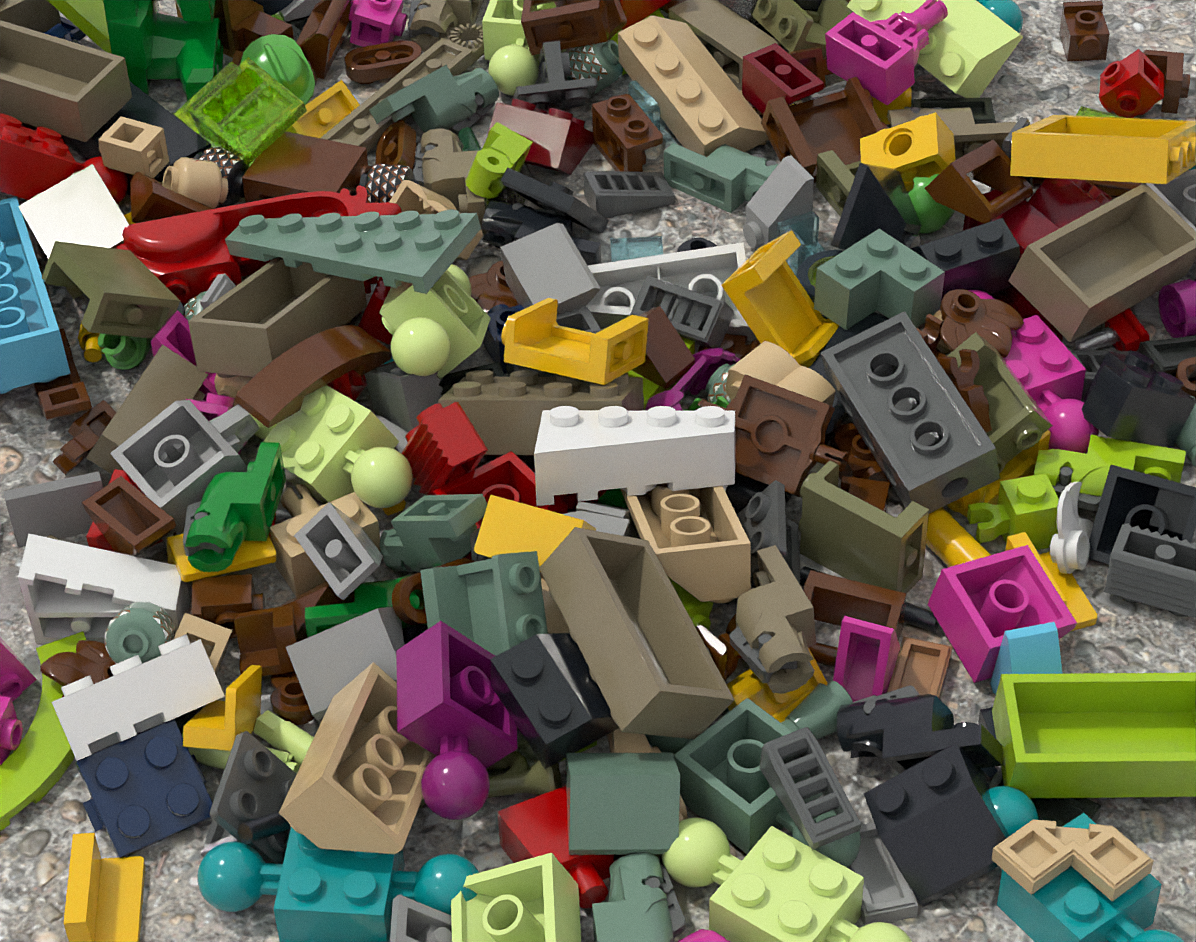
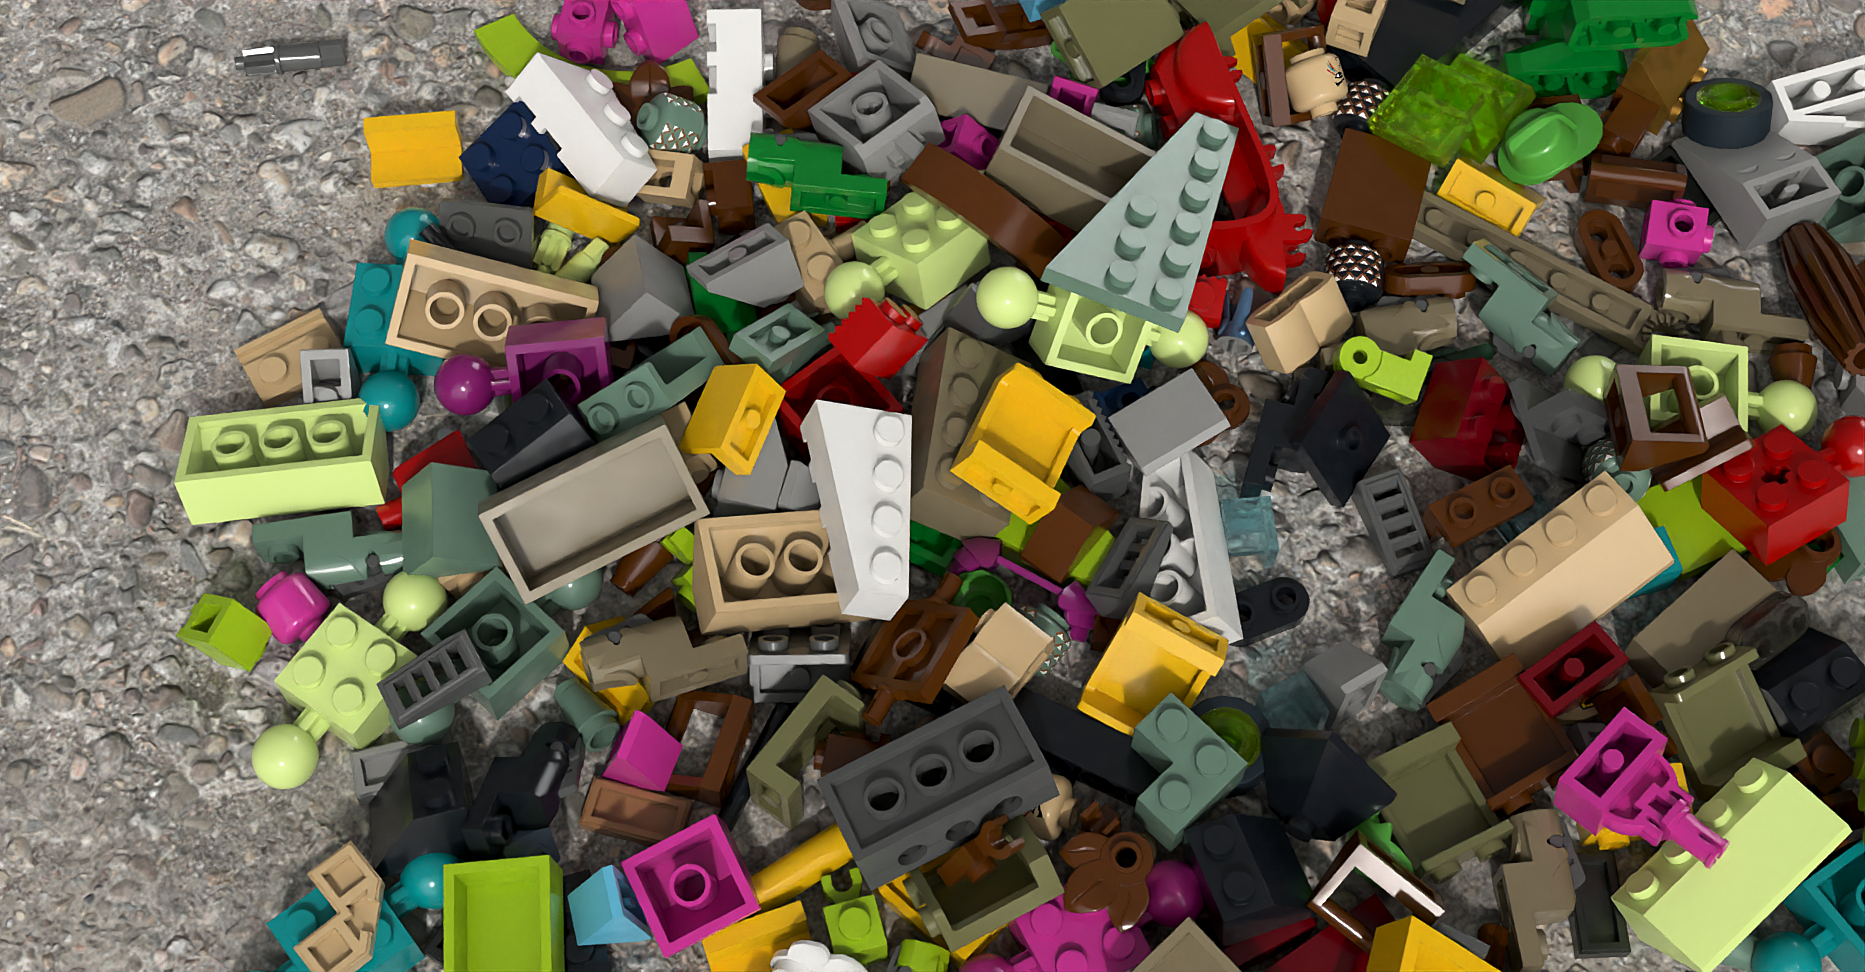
camera: 85 degrees right, 20 degrees up
(912, 148) = (1441, 821): yellow brick -> none

